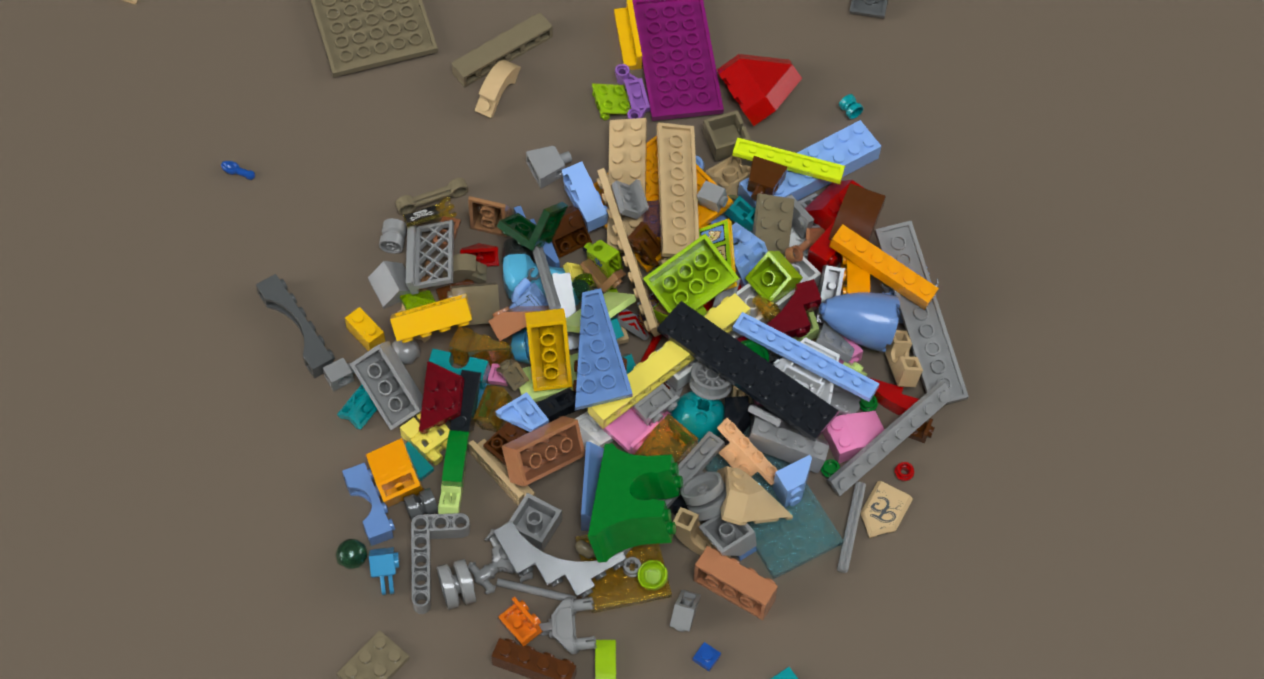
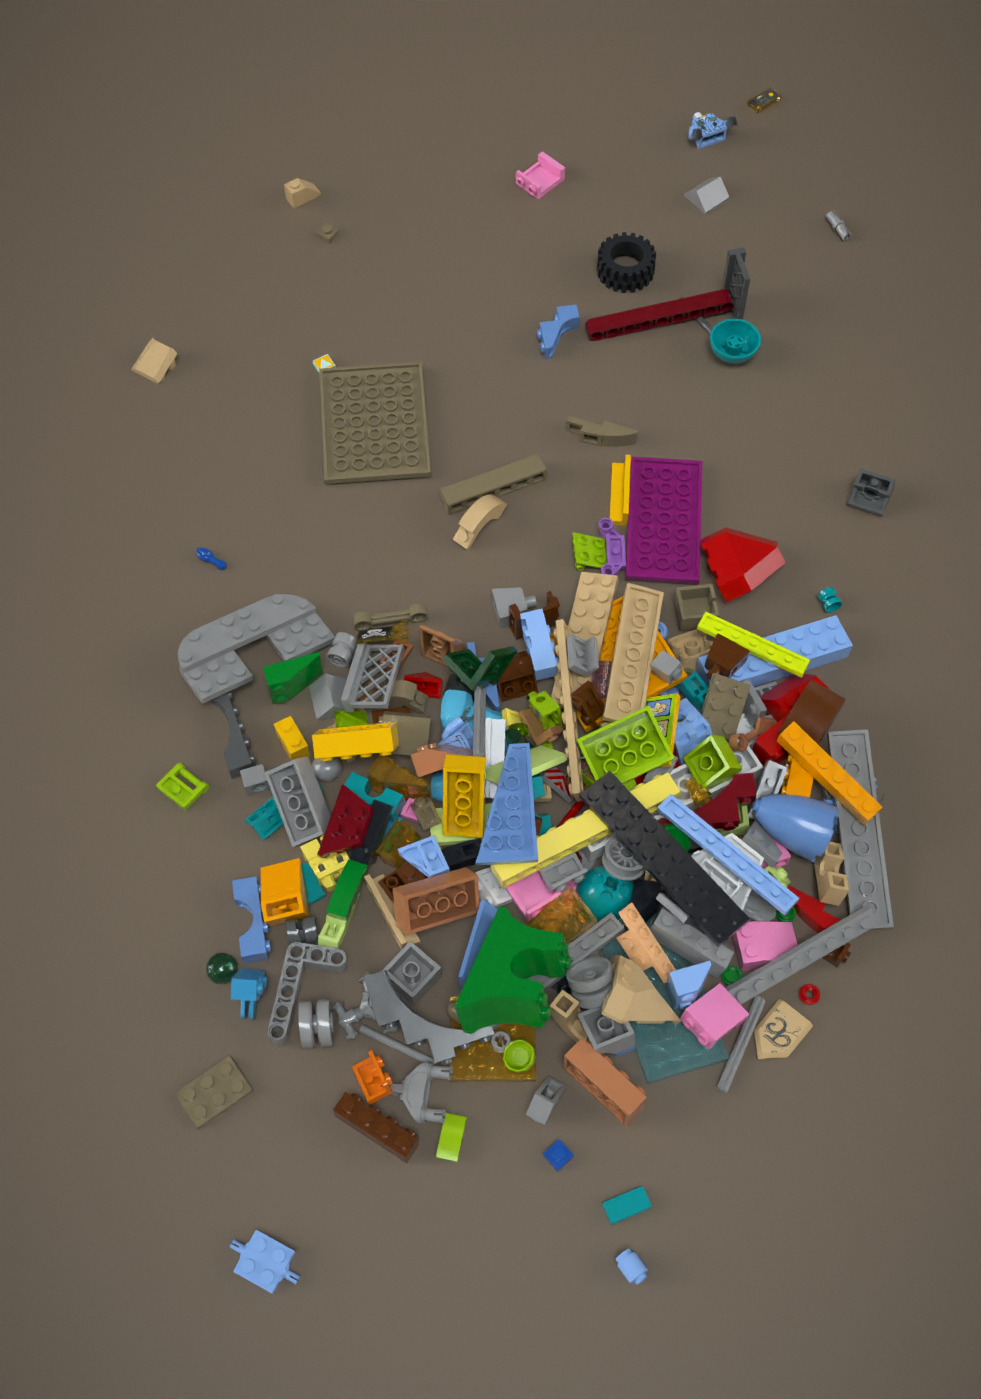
camera: 15 degrees right, 0 degrees up
(265, 398) = (179, 791): none -> lime plate
(329, 217) = (208, 652): none -> light grey plate
(349, 270) = (292, 676): none -> green slope
(555, 173) = (550, 613): none -> reddish brown panel
(822, 506) = (713, 1016): none -> bright pink panel

